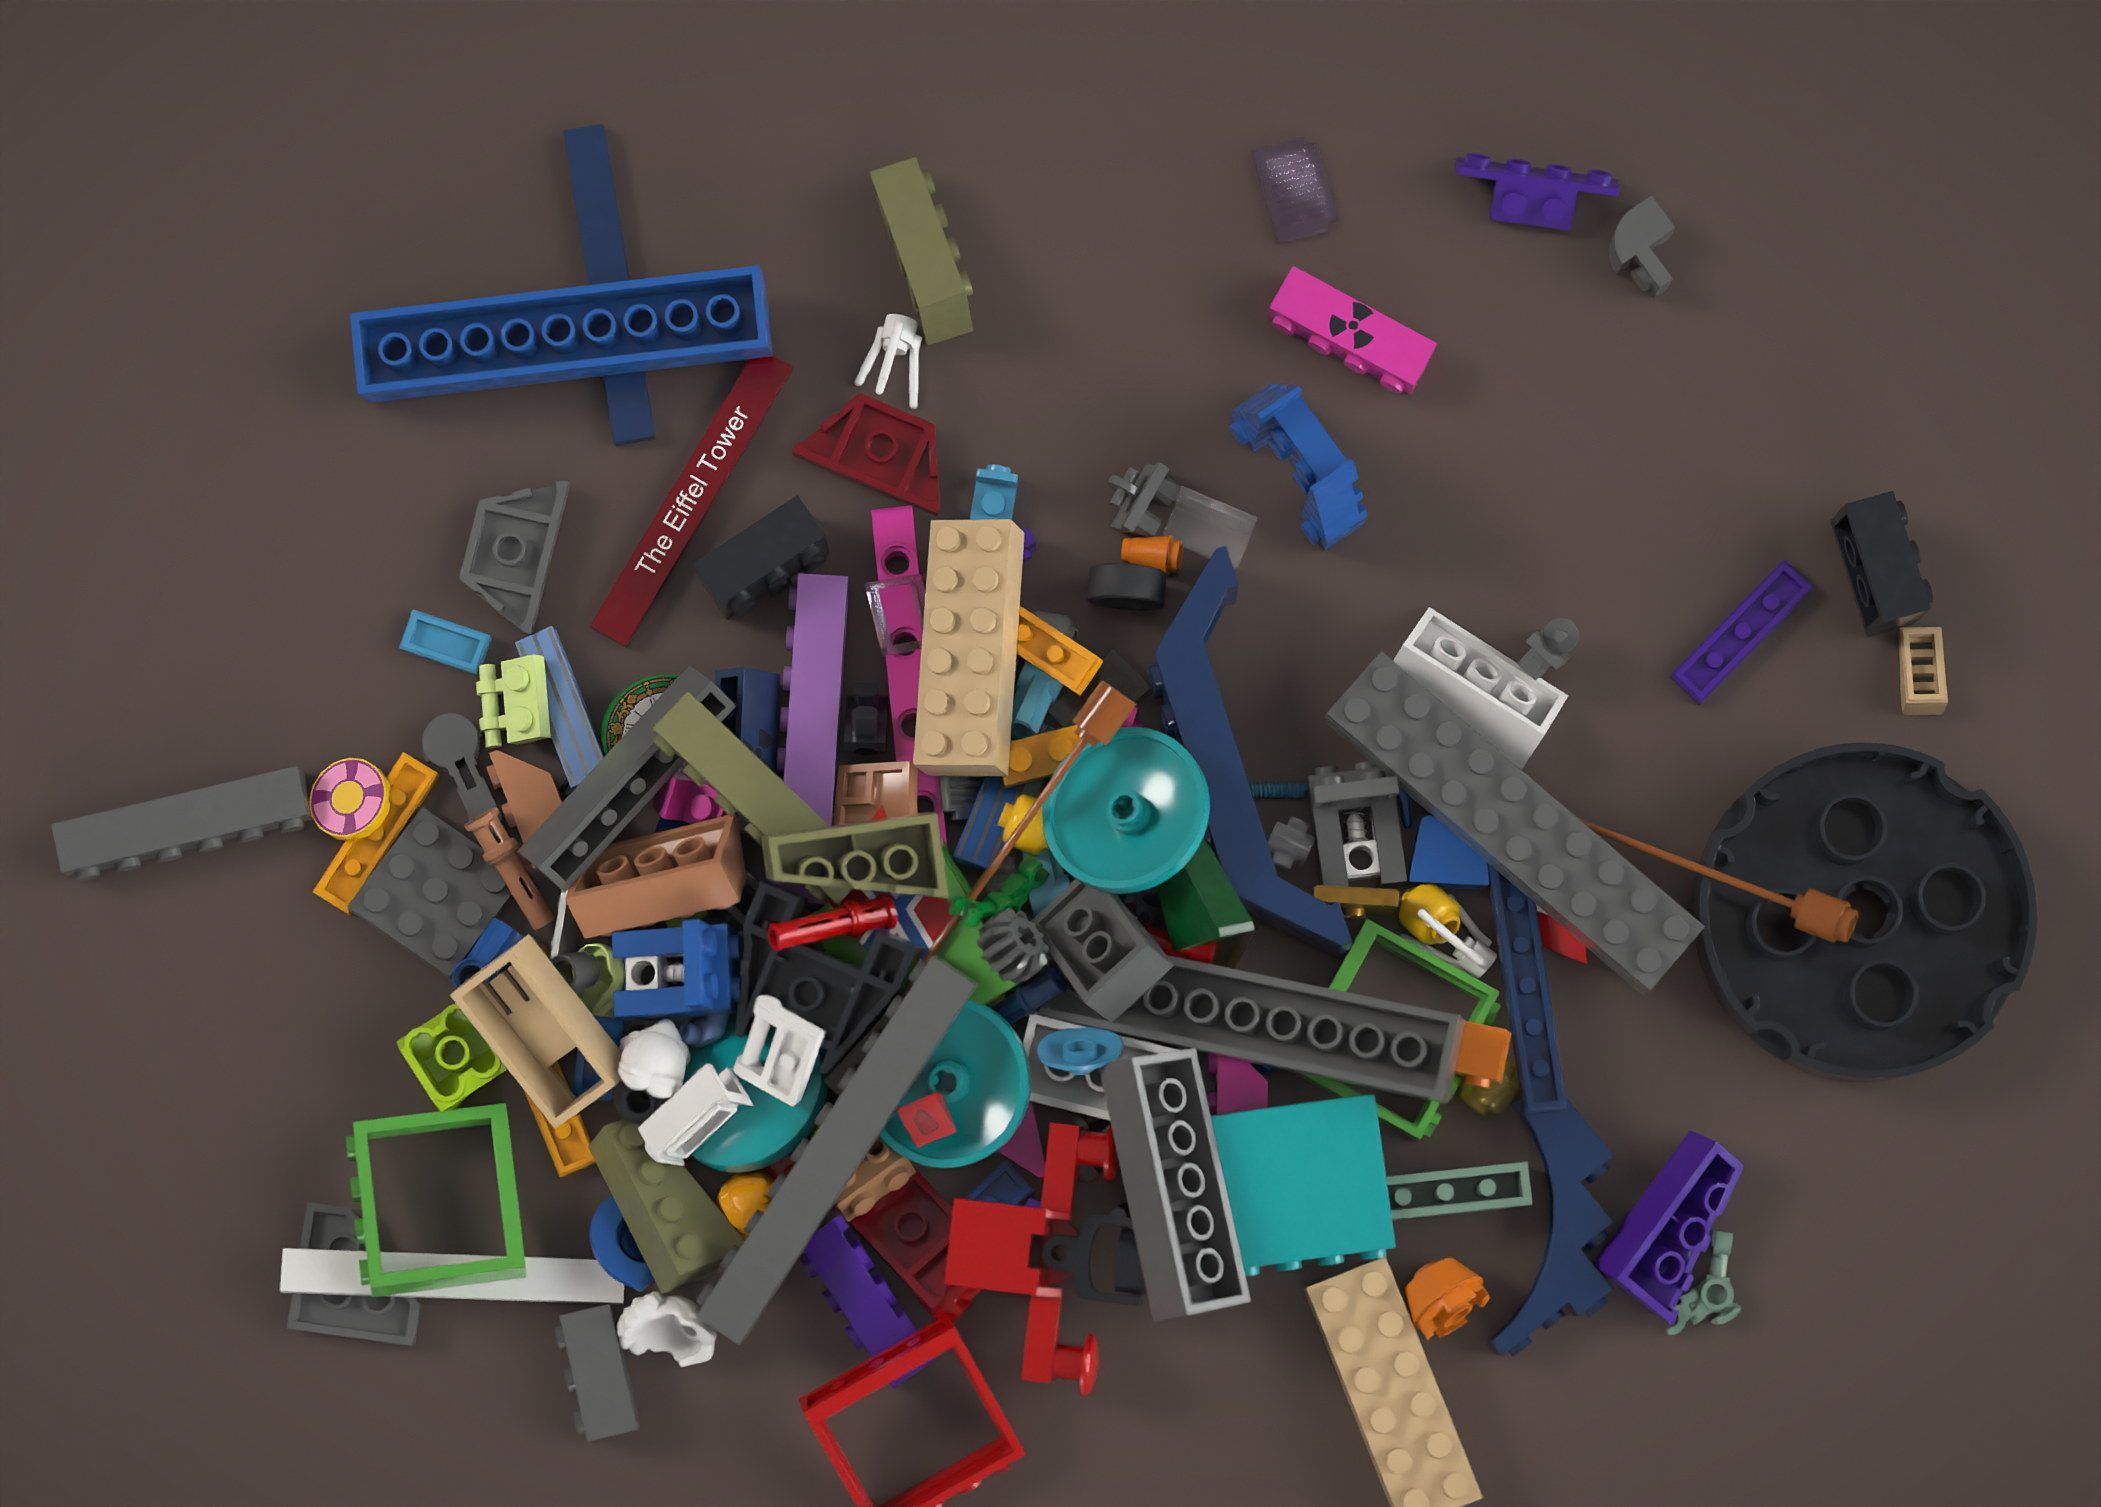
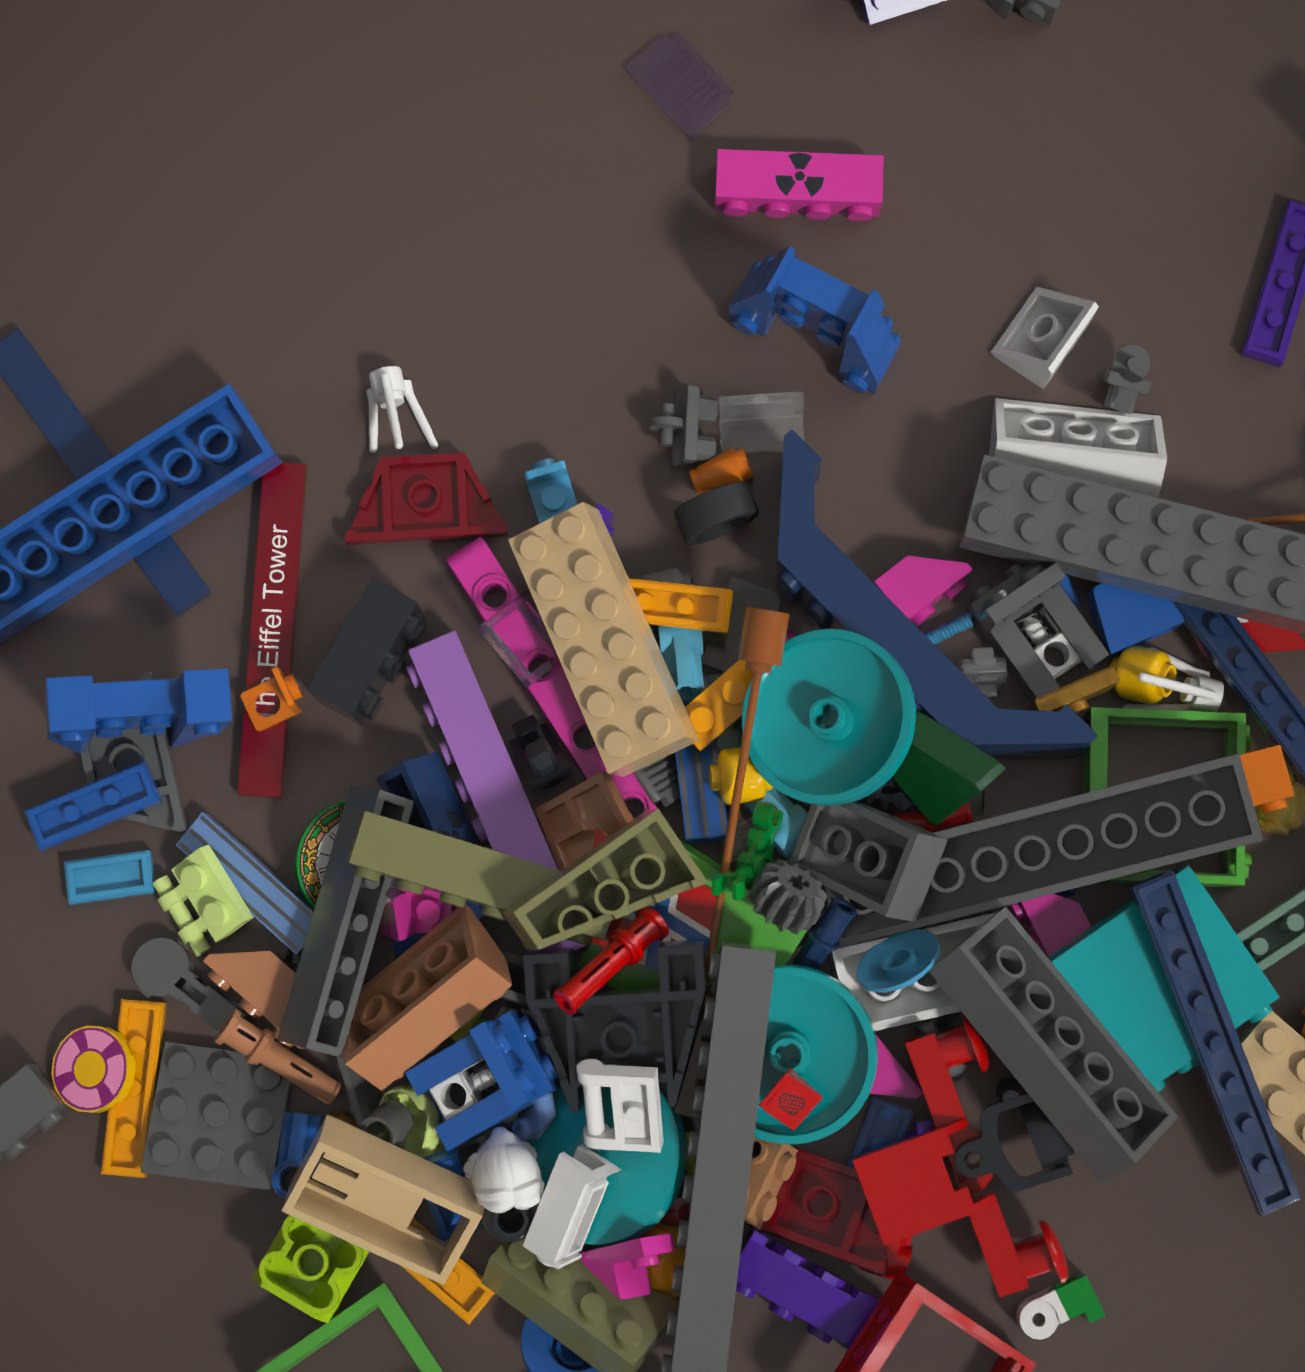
camera: 25 degrees left, 0 degrees up
(461, 573) = (93, 806): none -> blue tile
(587, 528) = (191, 706): none -> blue wedge
(676, 554) = (285, 688): none -> orange bracket
(716, 1189) = (625, 1264): none -> dark pink slope
(922, 249) = (373, 298): olive wedge -> none
(1057, 1416) = (1047, 1309): none -> leg
(1274, 737) = (921, 582): none -> dark pink slope
(1317, 1257) = (1215, 1042): none -> dark blue tile
(1500, 572) = (1044, 334): none -> white slope

